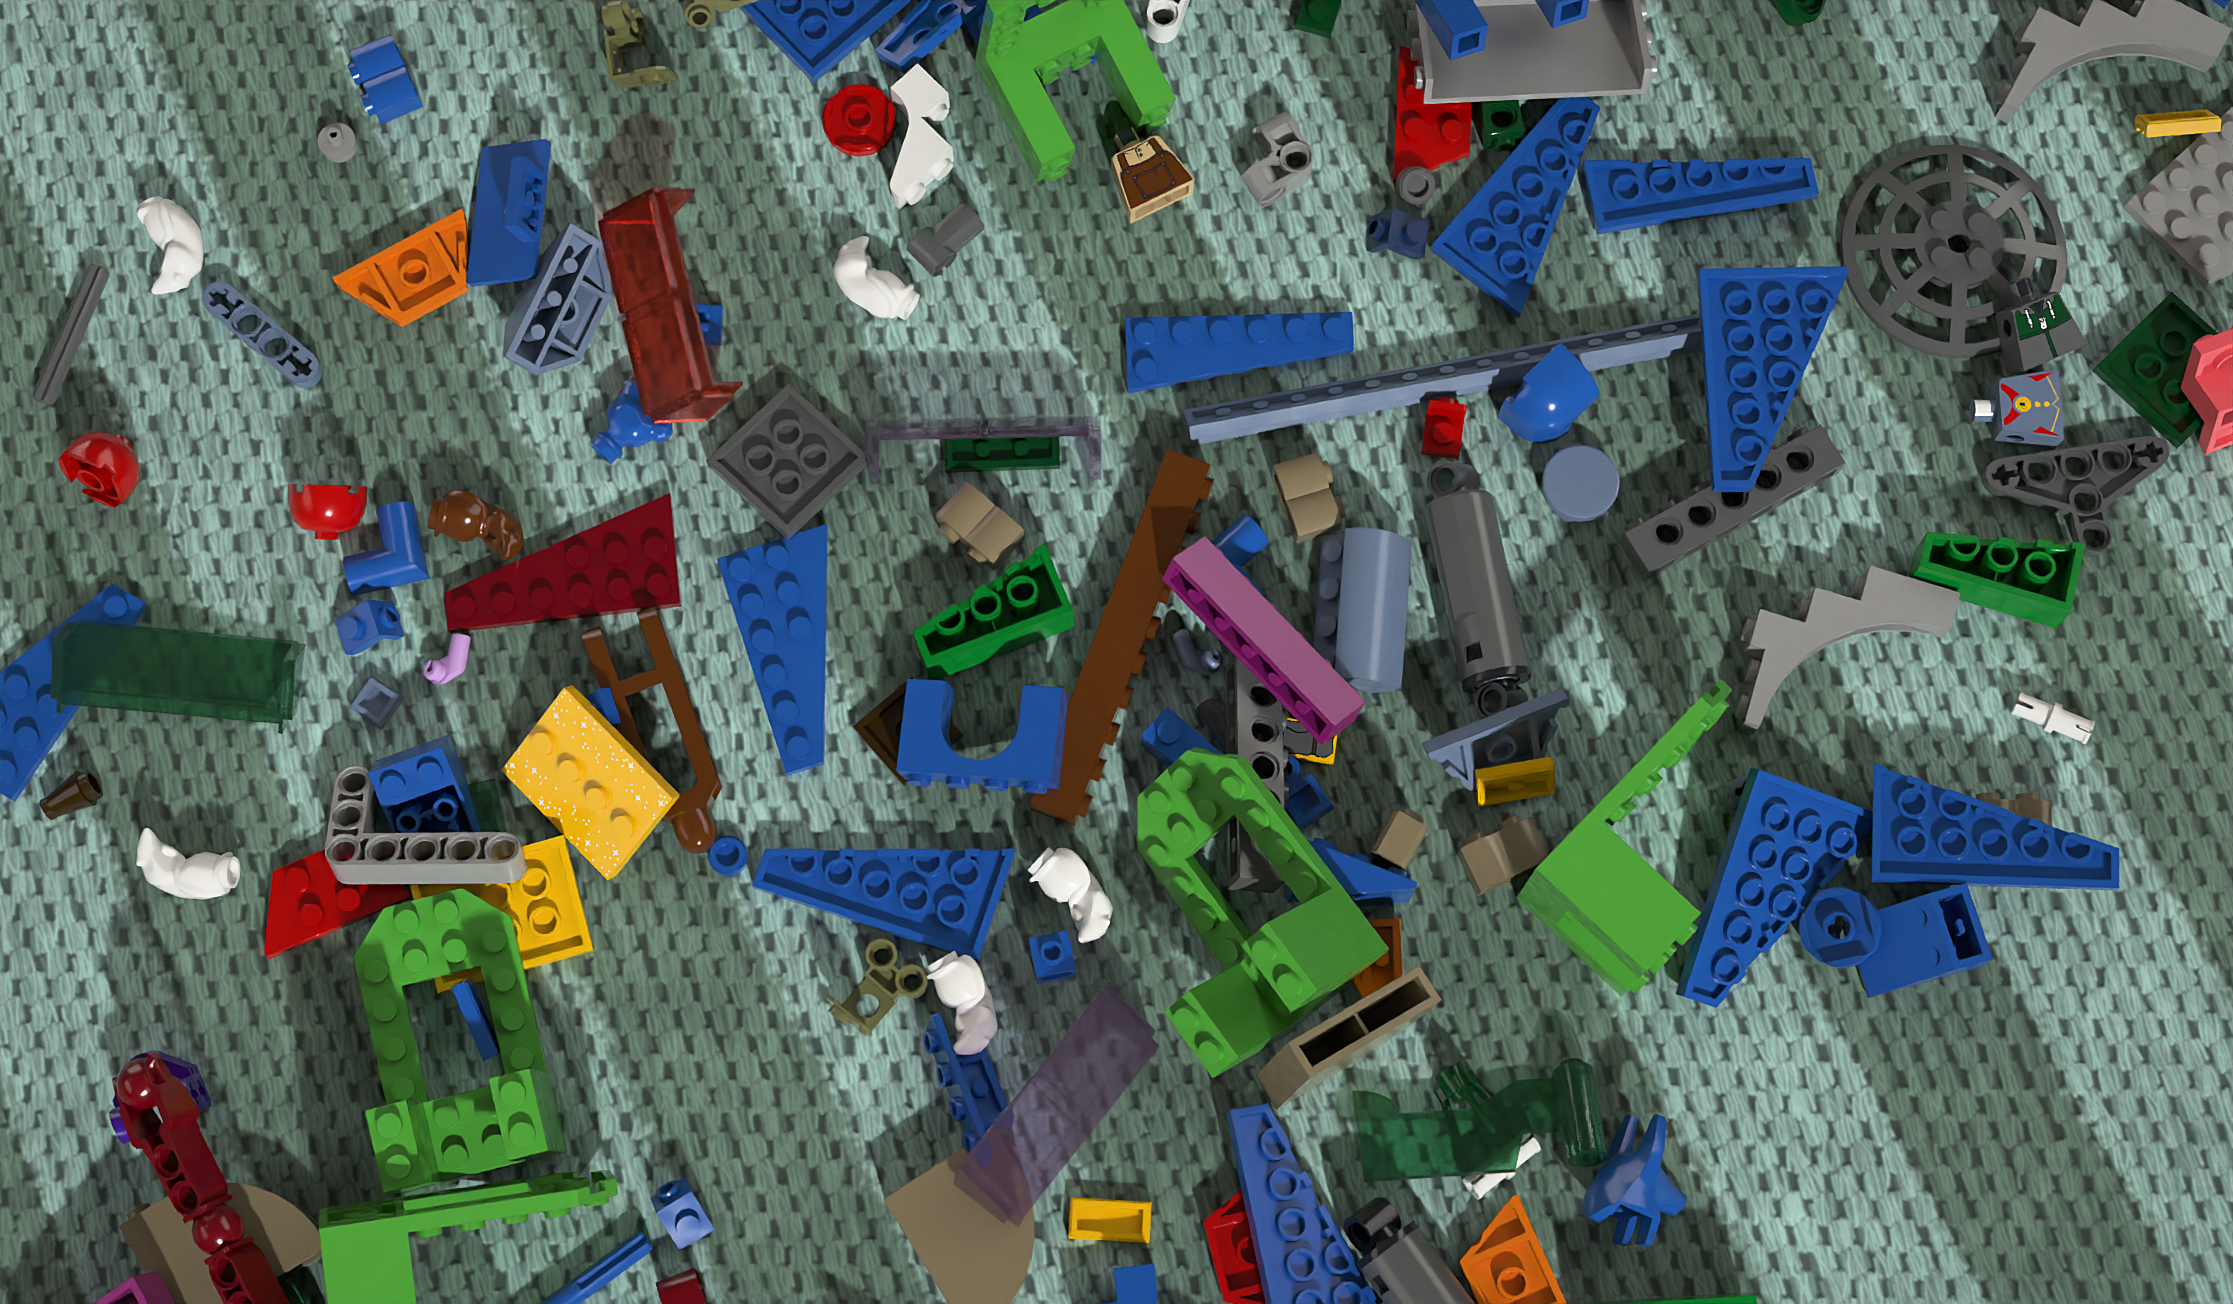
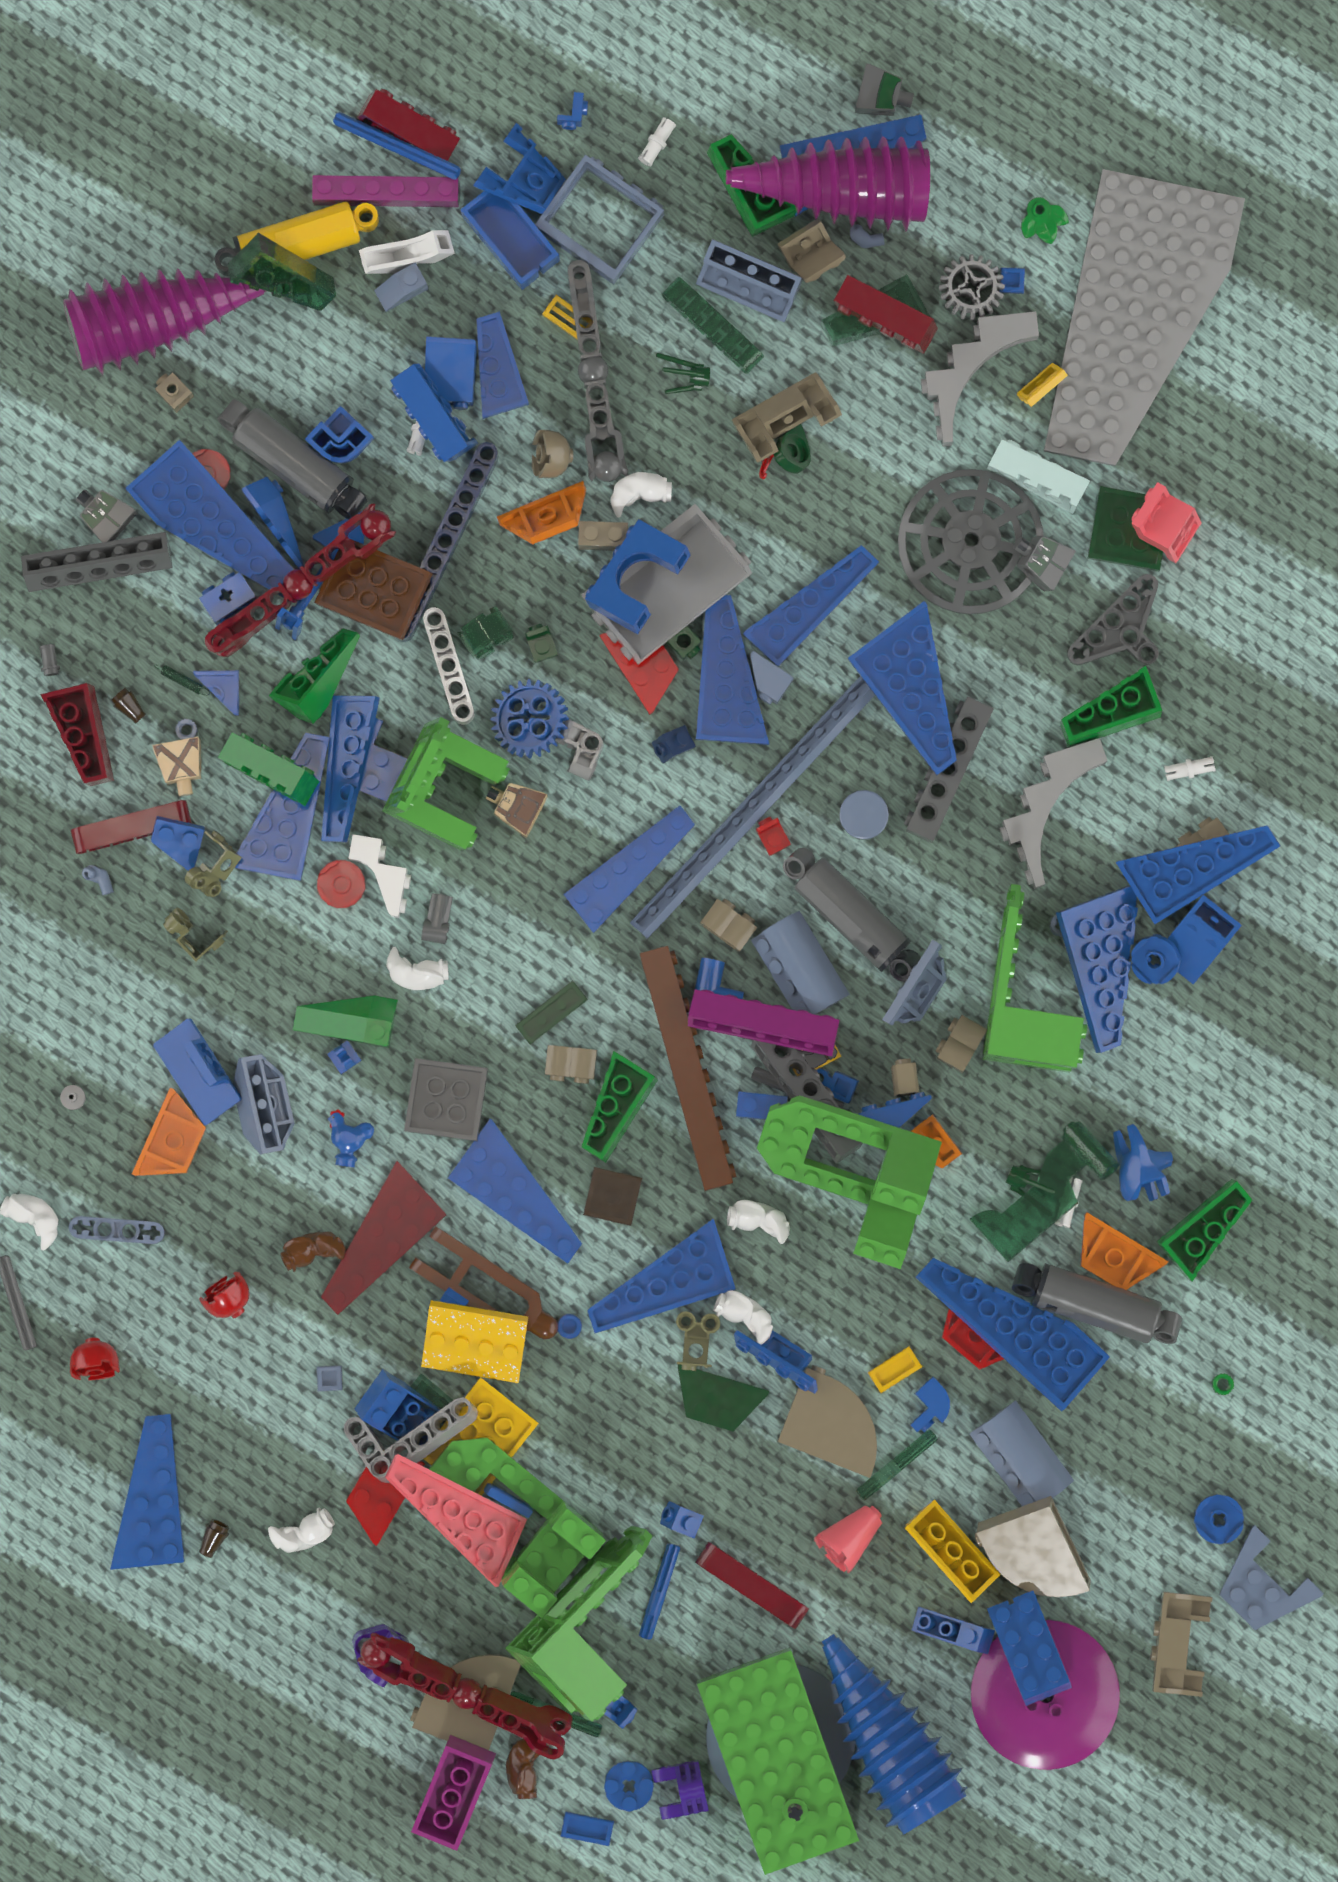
camera: 30 degrees left, 10 degrees up
(176, 672) = (219, 1435): clear green piece -> none
(368, 625) = (295, 1342): blue bracket -> none
(385, 79) = (72, 1045): blue brick -> none
(400, 559) = (282, 1294): blue brick -> none
(401, 1008) = (470, 1522): none -> coral wing
(453, 664) = (352, 1332): lavender arm -> none
(660, 309) = (319, 1068): clear red piece -> none
(752, 291) = (354, 1019): none -> green wedge
(848, 1088) = (717, 1398): none -> dark green wing
(974, 428) = (542, 1007): piece -> none
(1028, 762) = (690, 1171): blue arch -> none
(1052, 957) = (772, 1260): blue brick -> none
(1057, 1108) = (833, 1335): clear purple piece -> none
(1193, 658) = (732, 1051): sand blue arm -> none
(1239, 81) = (530, 697): none -> blue gear
(1346, 1037) = (950, 1197): dark tan brick -> none
(1415, 185) = (663, 709): dark grey tile -> none
(1515, 781) = (940, 1000): yellow tile -> none
(1550, 398) = (818, 782): blue brick -> none
(1578, 239) = (769, 679): none -> sand blue slope
(2024, 410) = (1066, 609): sand blue torso -> none
(2102, 228) = (1038, 475): none -> light aqua wedge

